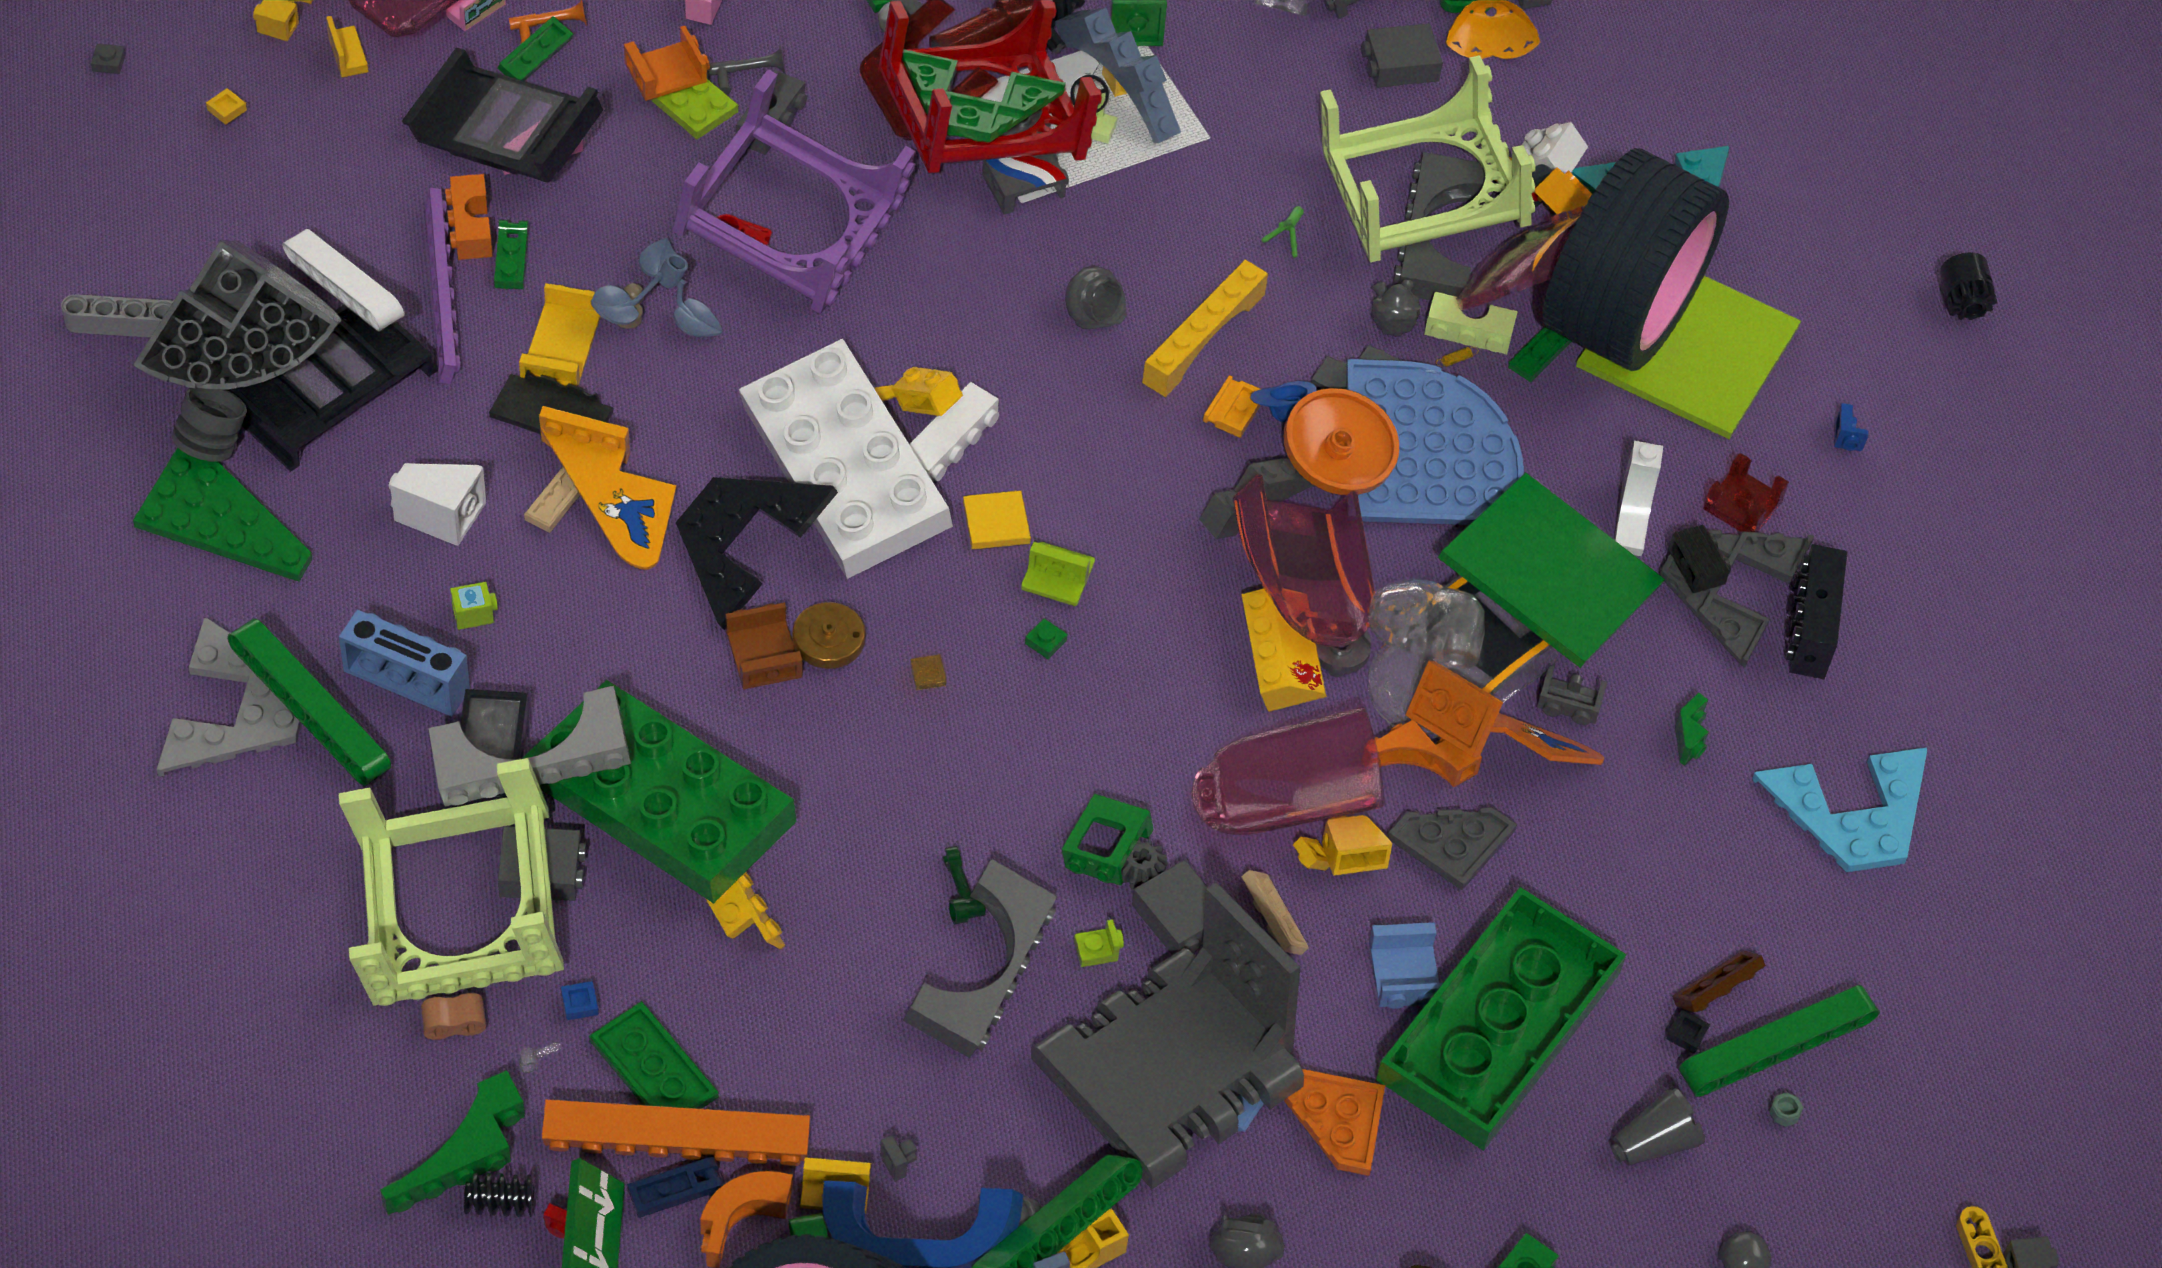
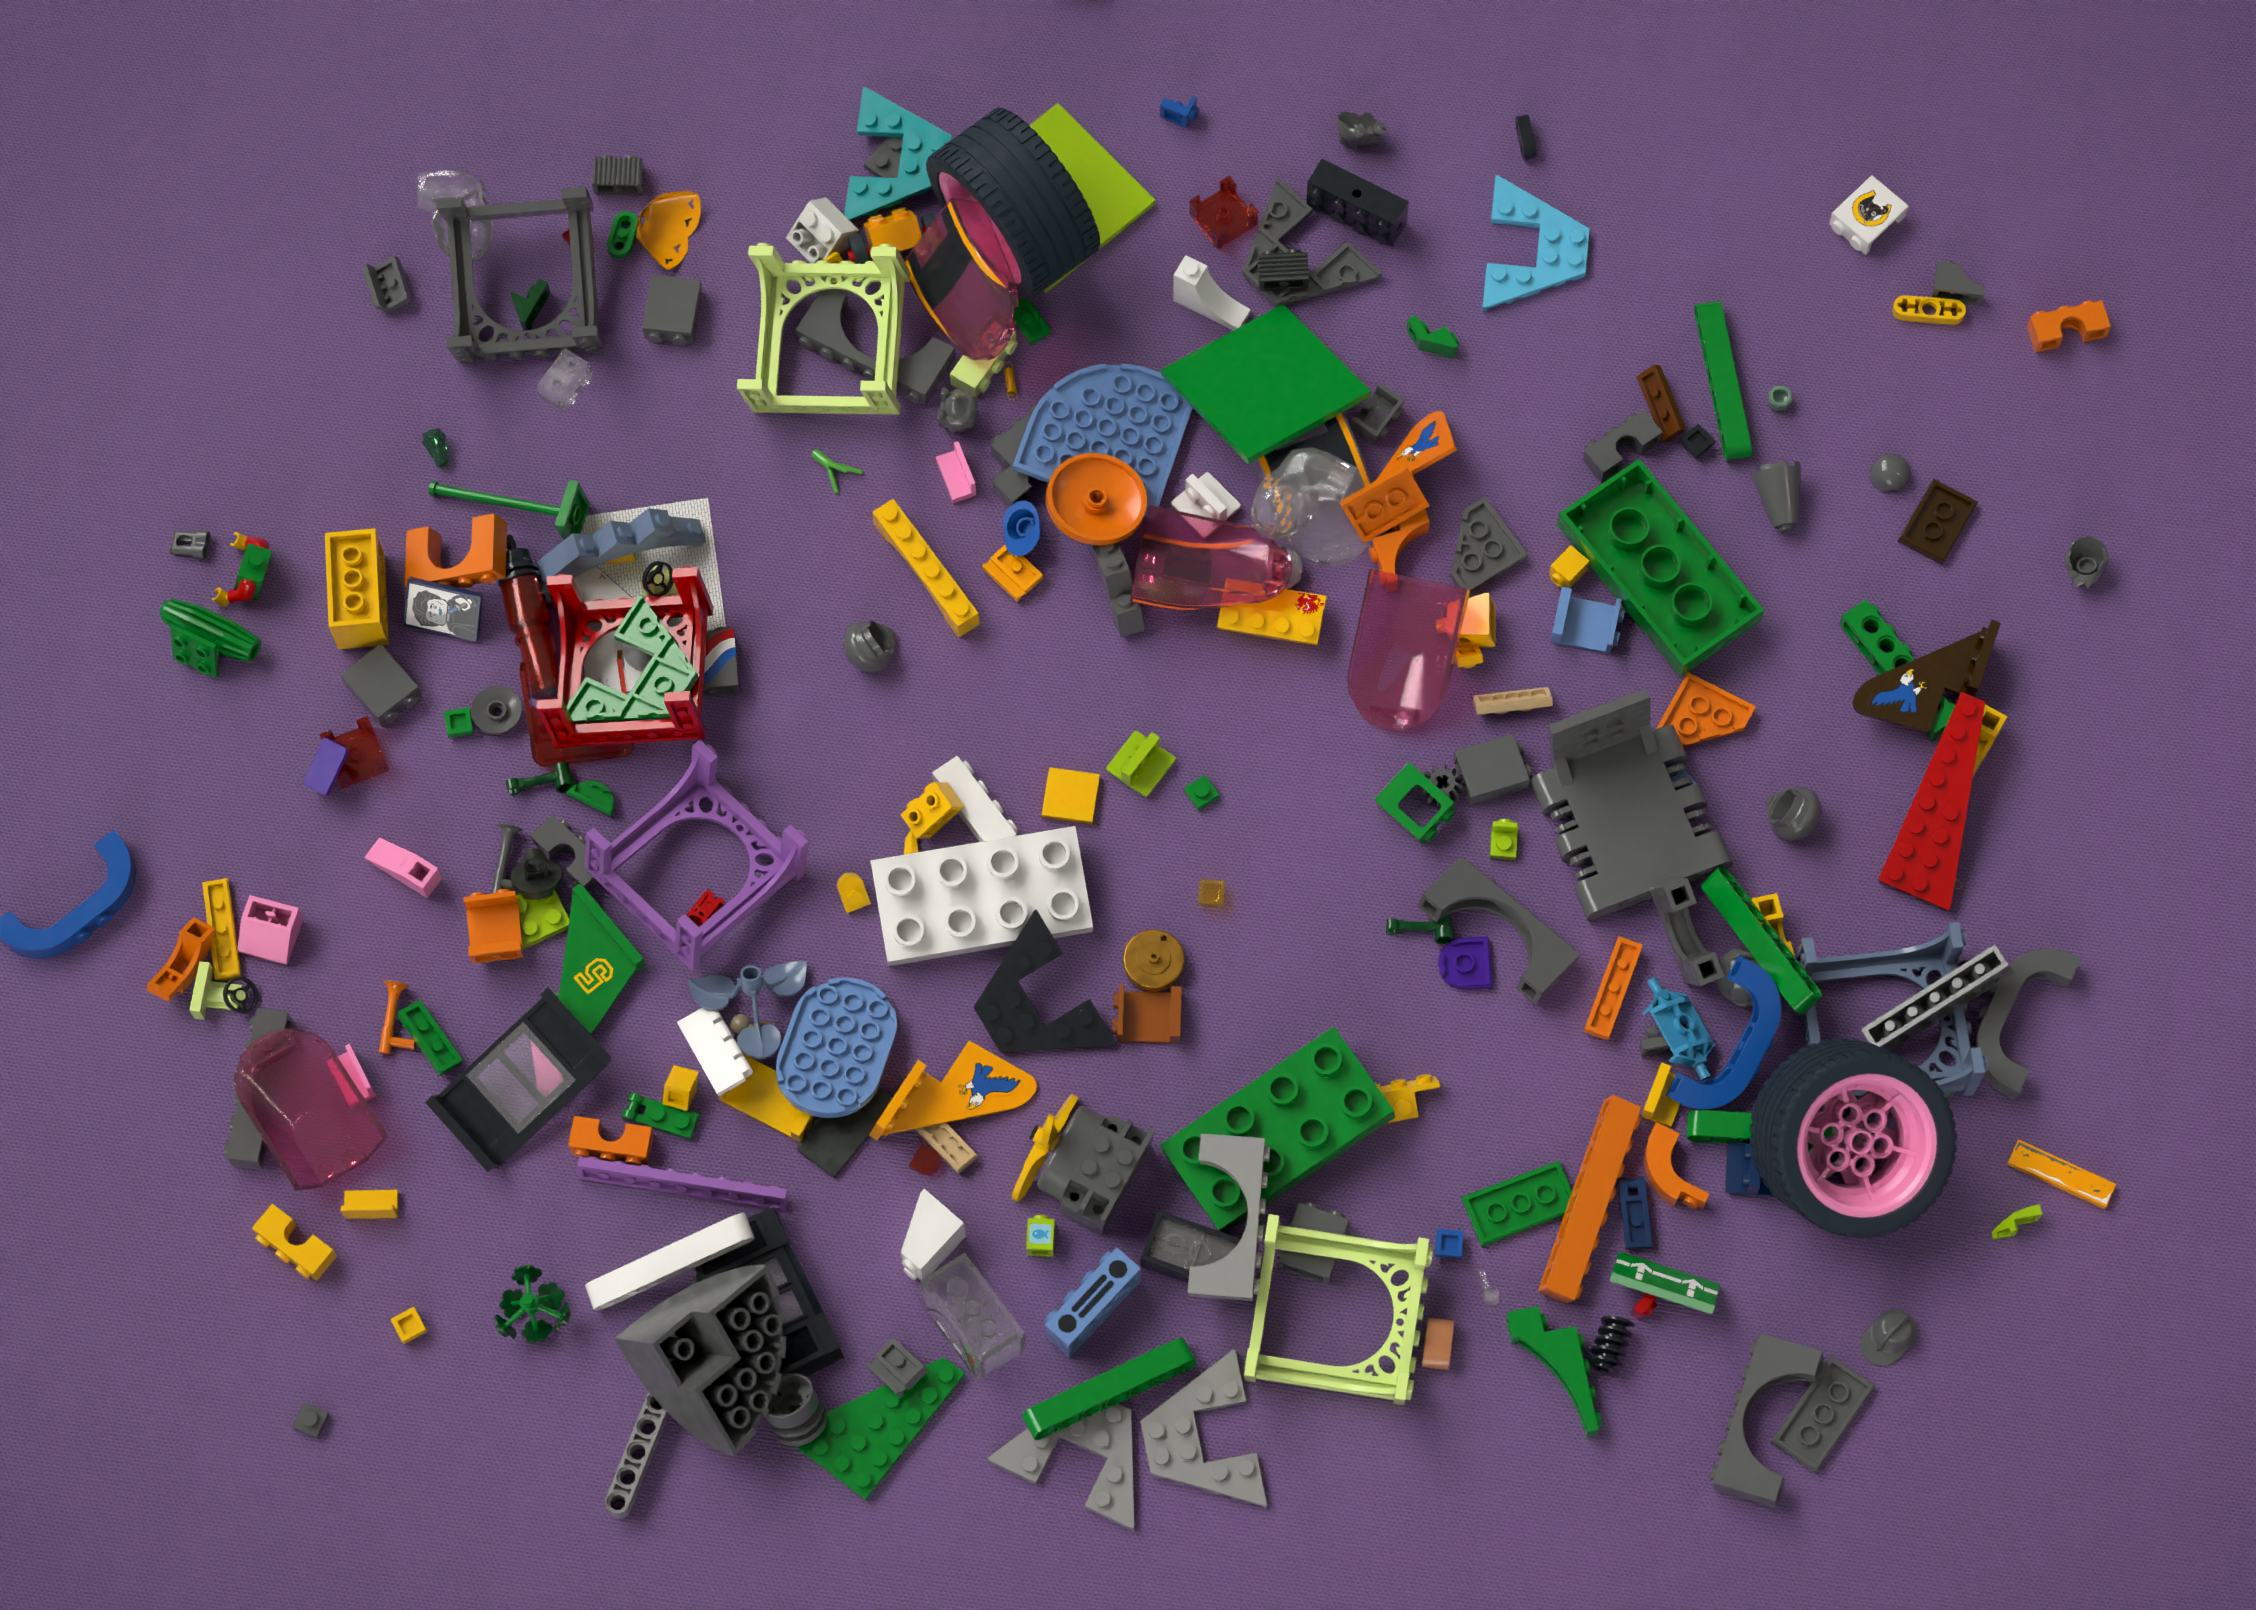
camera: 65 degrees left, 15 degrees up
(263, 791) = (1174, 1442): none -> light grey wing
(270, 183) = (516, 1305): none -> dark green plant
(285, 510) = (897, 1367): none -> dark grey plate
(352, 549) = (971, 1317): none -> clear brick
(530, 486) = (925, 1161): none -> clear red tile
(544, 255) = (680, 1087): none -> yellow brick
(564, 617) = (1087, 1164): none -> dark grey brick
(592, 272) = (715, 1049): none -> white windscreen
(628, 371) = (836, 1047): none -> medium blue plate
(654, 160) = (595, 961): none -> green piece
(733, 86) = (536, 875): none -> pearl dark grey tile
(810, 343) = (852, 892): none -> yellow plate
(842, 119) = (593, 795): none -> green plate
(851, 88) = (561, 777): none -> dark green brick
(899, 1182) = (1688, 1045): none -> dark azure plate
(934, 944) = (1466, 963): none -> dark purple tile
(952, 1099) = (1613, 988): none -> orange gear
(1070, 1119) = (1694, 961): none -> dark grey arch
(1327, 333) = (956, 474): none -> bright pink panel
(1394, 557) = (1206, 498): none -> white bracket
(1462, 929) = (1568, 568): none -> yellow brick
(1670, 961) = (1637, 431): none -> dark grey arch
(1911, 597) = (1359, 130): none -> dark grey hair
(1989, 765) = (1525, 136): none -> black beam
(2075, 1147) = (1867, 214): none -> white panel

